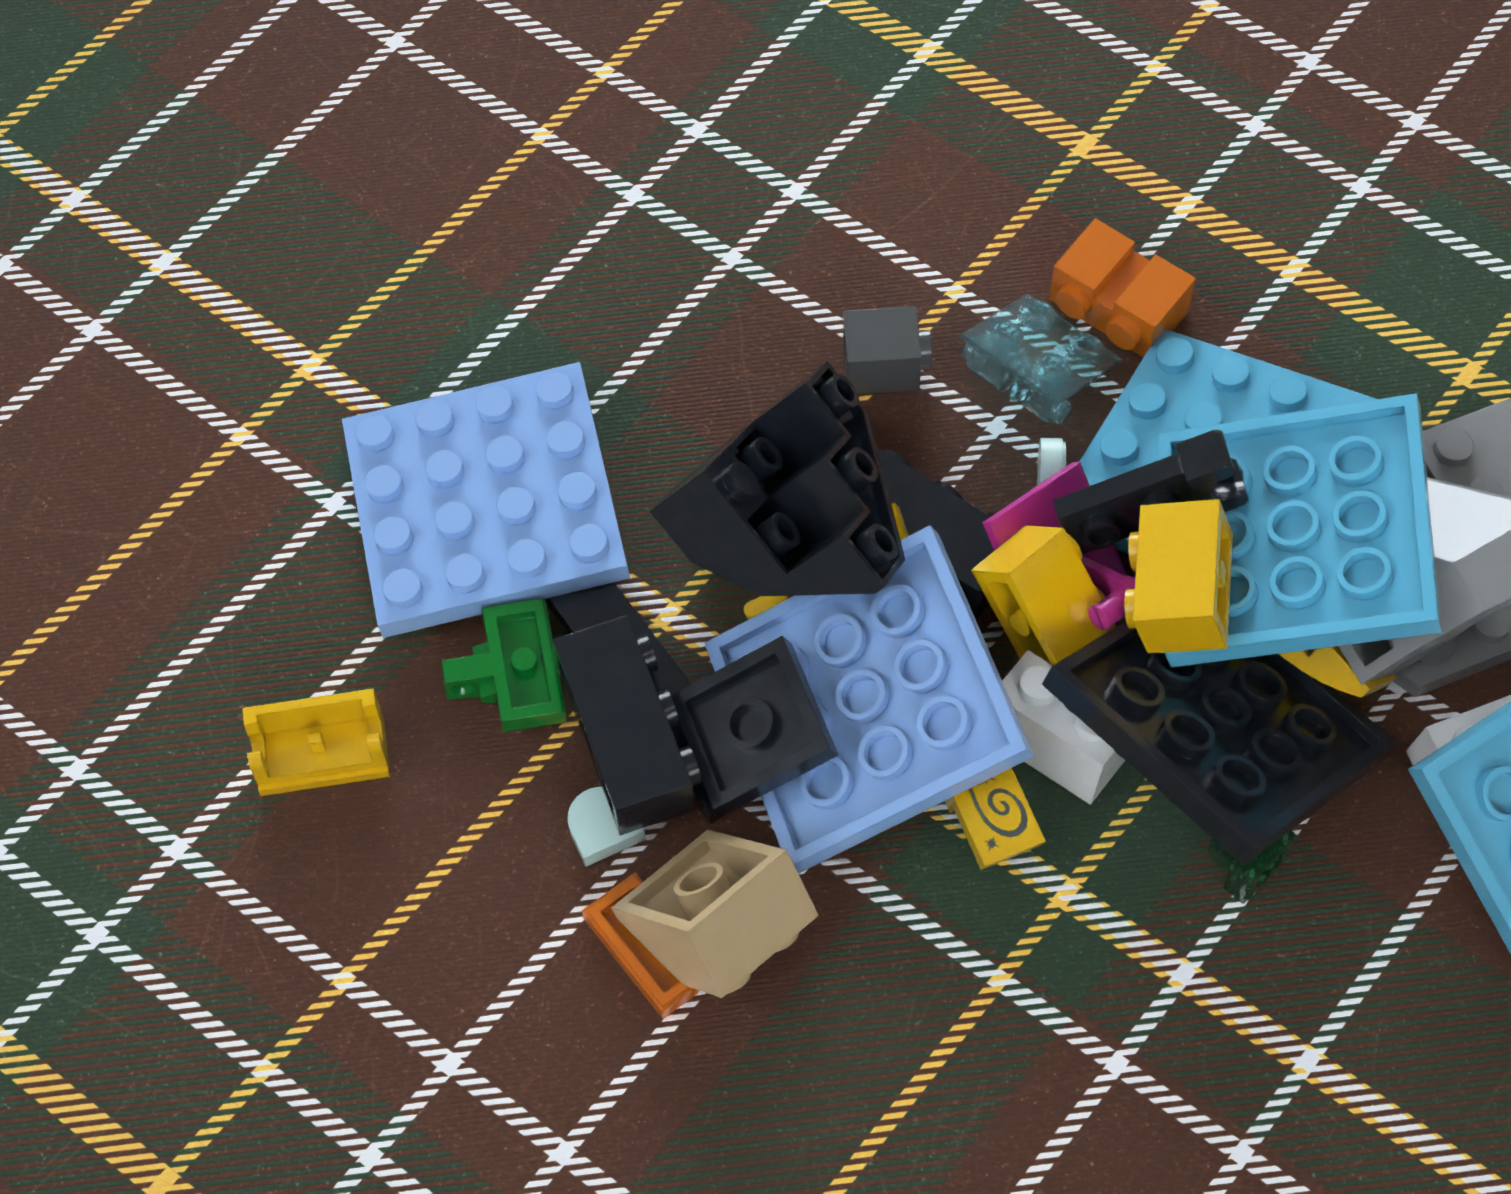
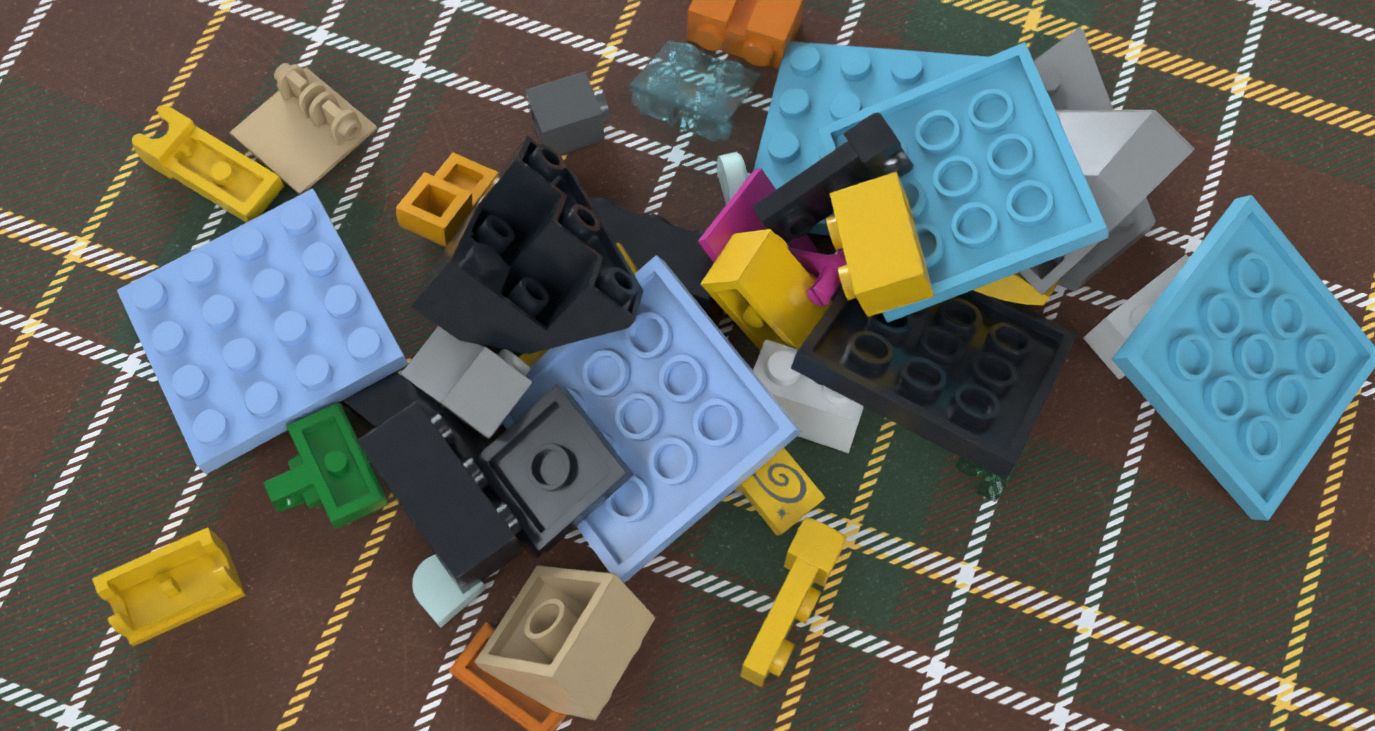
camera: 20 degrees left, 5 degrees up
(474, 311) = (209, 166): none -> yellow plate
(586, 294) = (302, 128): none -> tan hinge
(689, 608) = (469, 379): none -> light grey brick
(715, 411) = (443, 201): none -> light orange brick
(1009, 904) = (809, 561): none -> yellow plate

